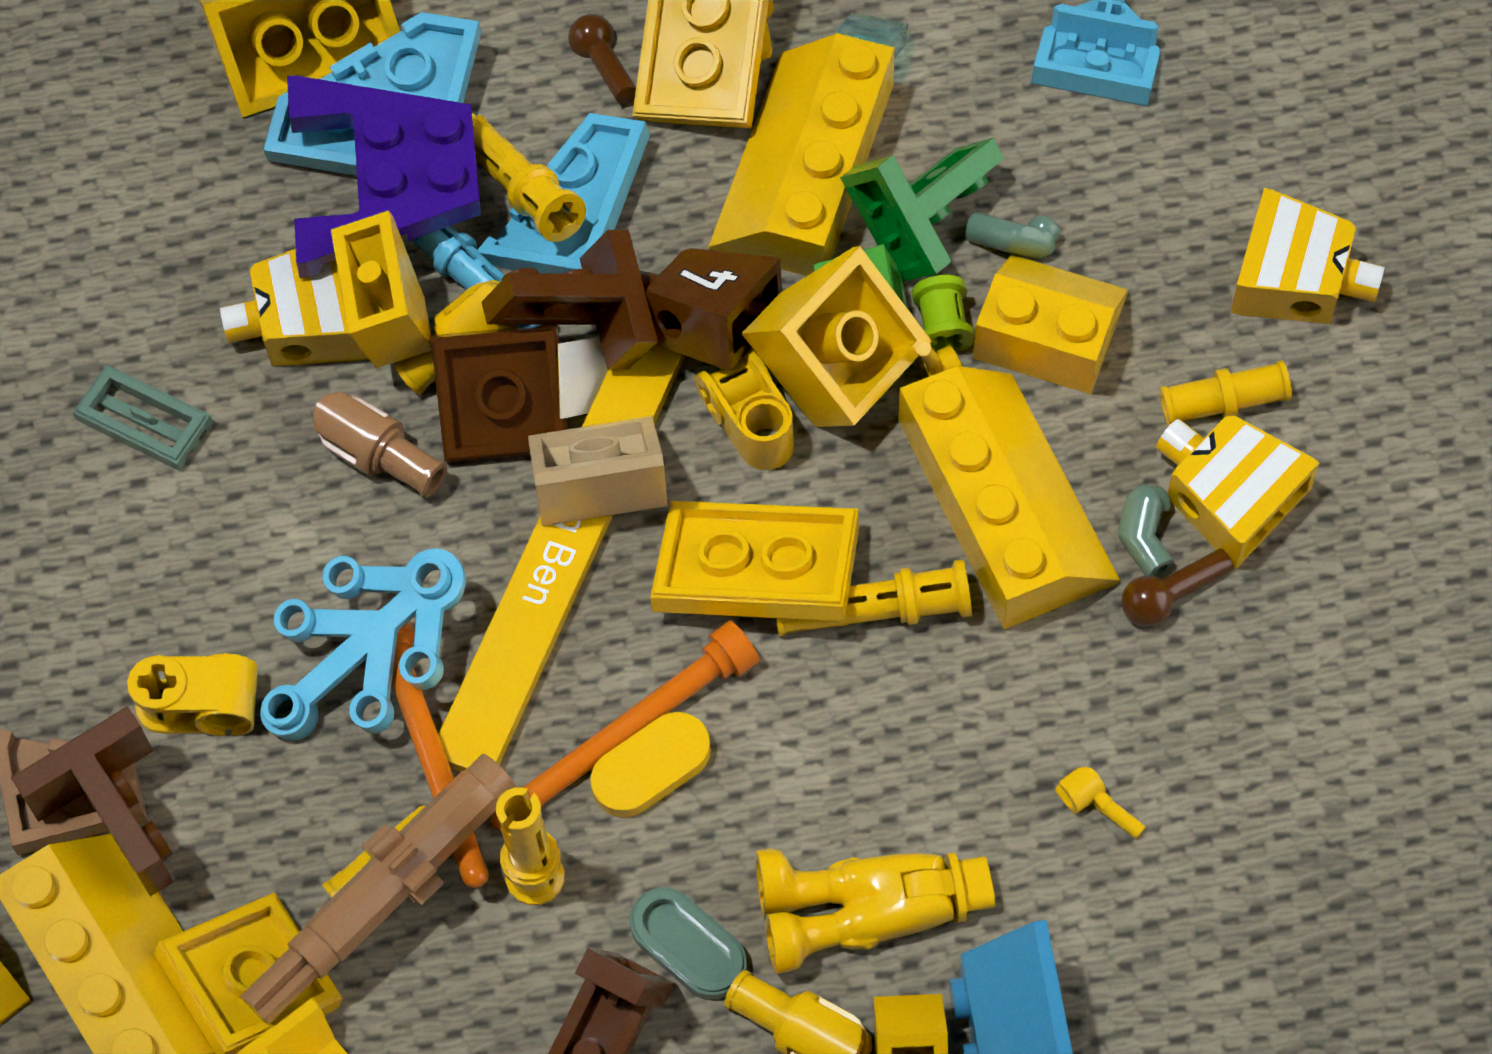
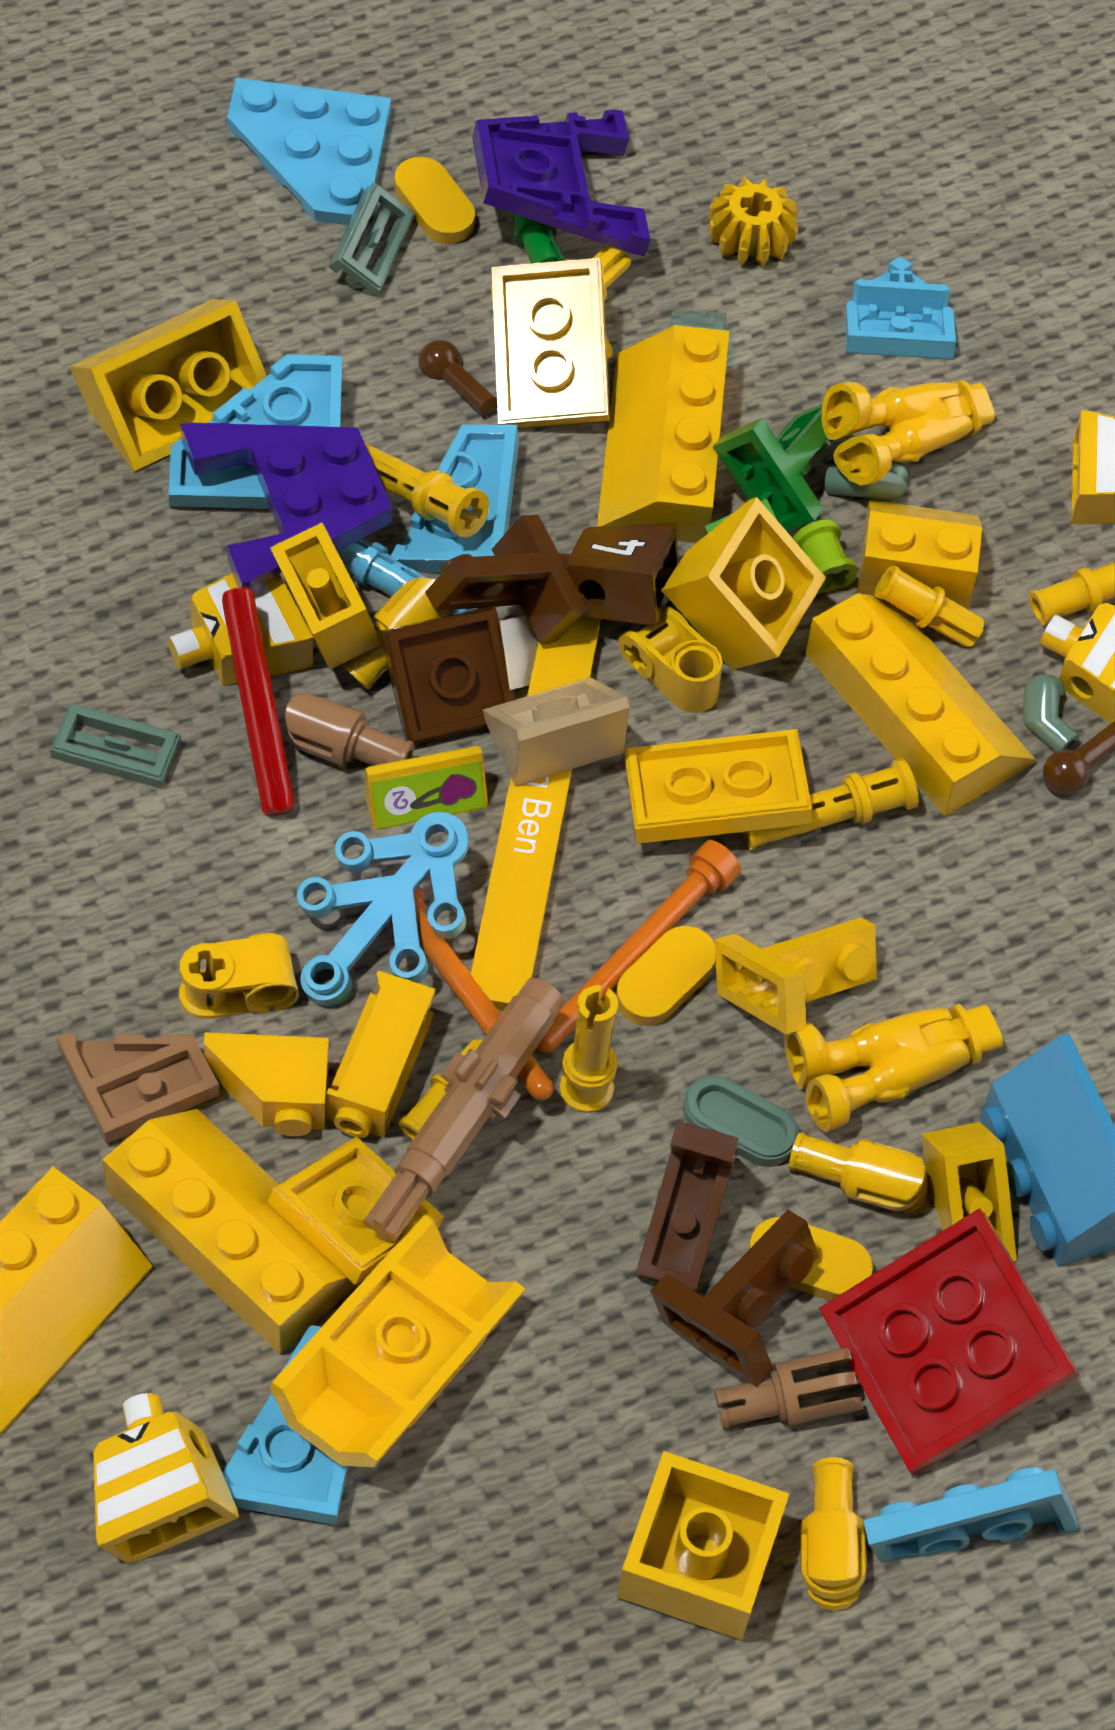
camera: 20 degrees left, 5 degrees down
(93, 767) = (173, 1052): reddish brown bracket -> none
(207, 814) = (273, 1077): none -> yellow slope
(288, 394) = (257, 701): none -> red axle
(319, 809) = (380, 1056): none -> yellow window
(447, 514) = (423, 785): none -> slope
(786, 786) = (784, 976): none -> yellow bracket
(936, 361) = (831, 593): yellow hand -> none
(1041, 390) = (929, 606): none -> yellow axle
(1079, 172) = (917, 419): none -> yellow piece
(1086, 787) = (1055, 935): yellow hand -> none

